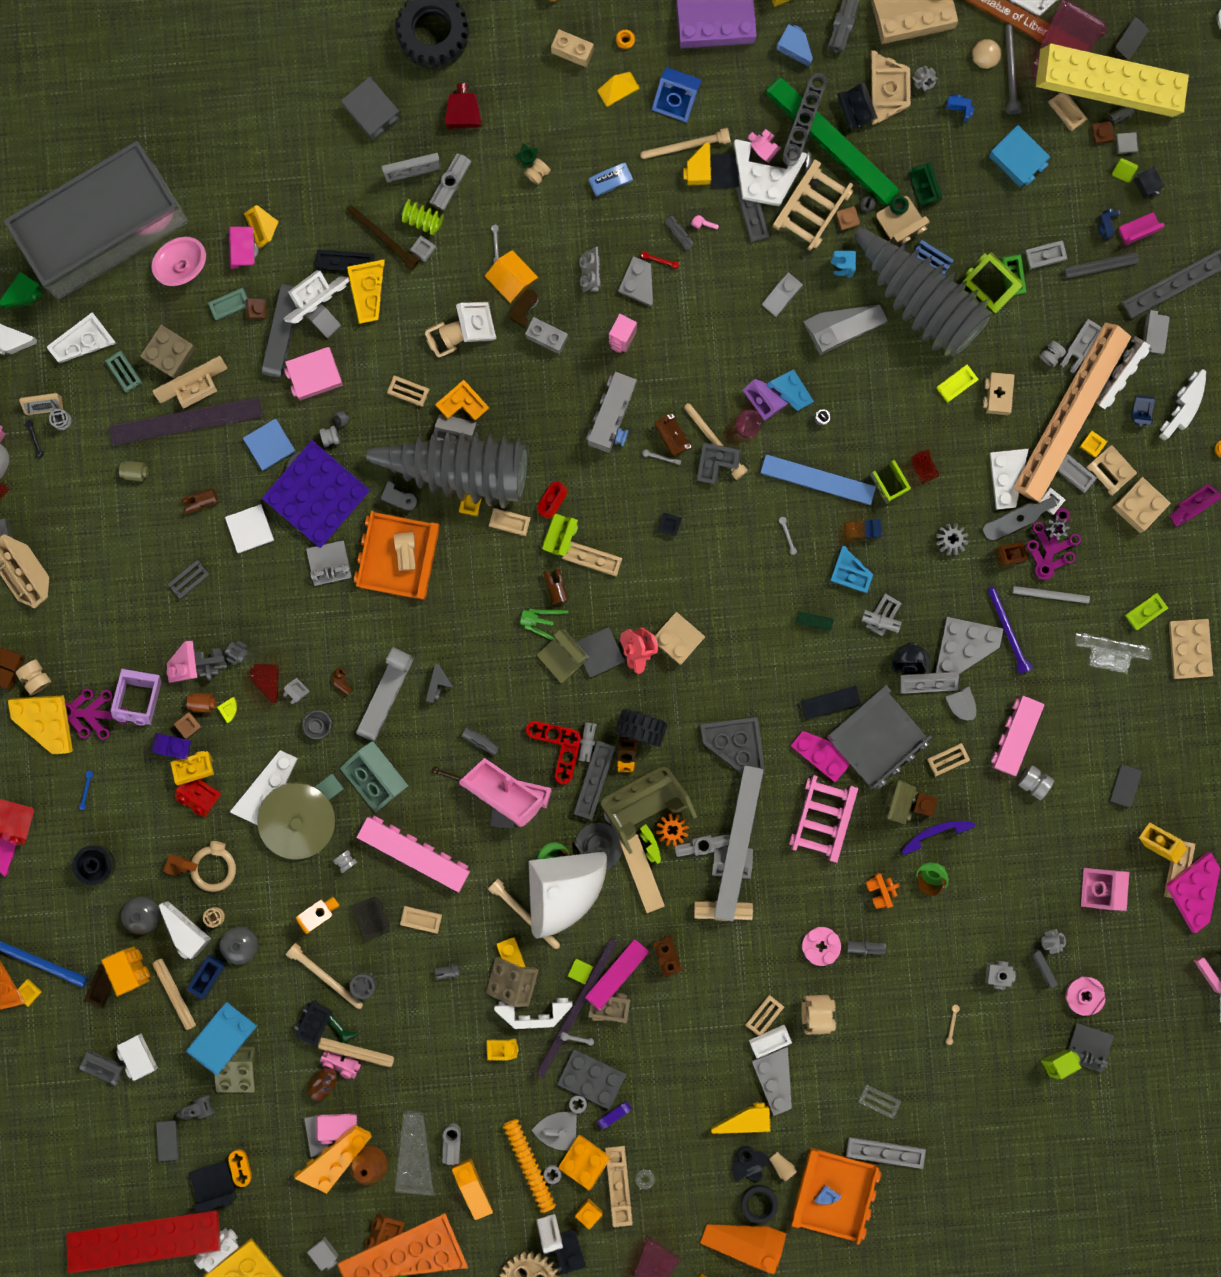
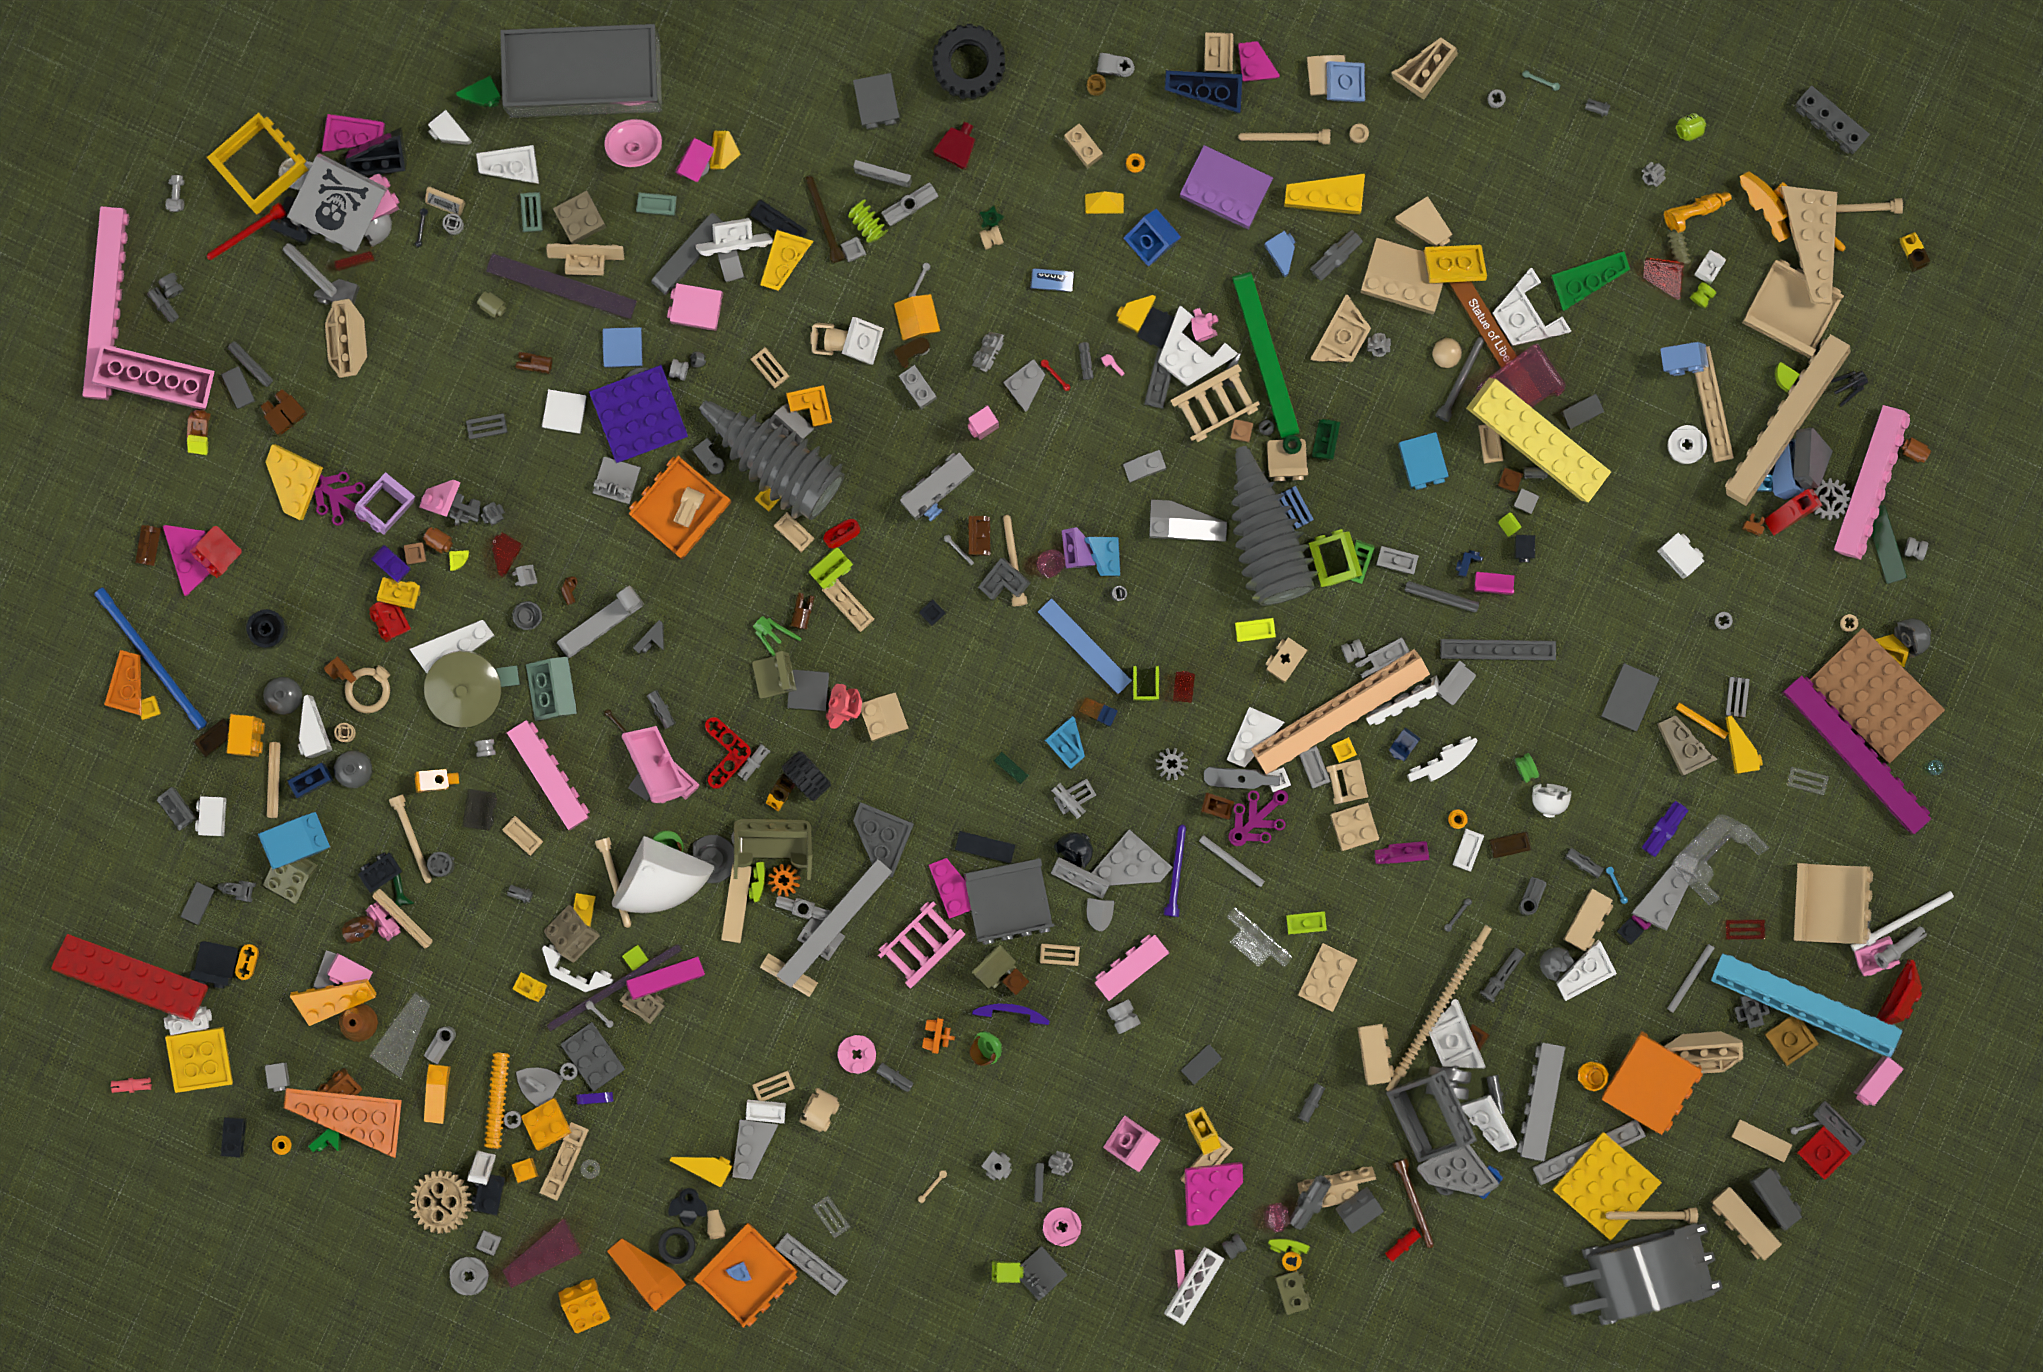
camera: 40 degrees right, 0 degrees up
(33, 677) = (305, 437): tan wheel -> none
(89, 774) = (306, 548): blue hinge -> none
(256, 308) = (677, 221): reddish brown plate -> none
(594, 780) = (741, 799): dark grey plate -> none
(667, 956) = (717, 987): reddish brown hips -> none
(721, 137) = (1170, 296): tan piece -> none
(782, 521) = (1033, 665): light grey hinge -> none
(808, 111) = (1255, 316): dark grey beam -> none
(846, 261) = (1214, 470): dark azure hinge -> none
(857, 106) = (1304, 336): black bracket -> none
(957, 102) = (1395, 382): blue bracket -> none
(1057, 521) = (1268, 810): flat silver gear -> none

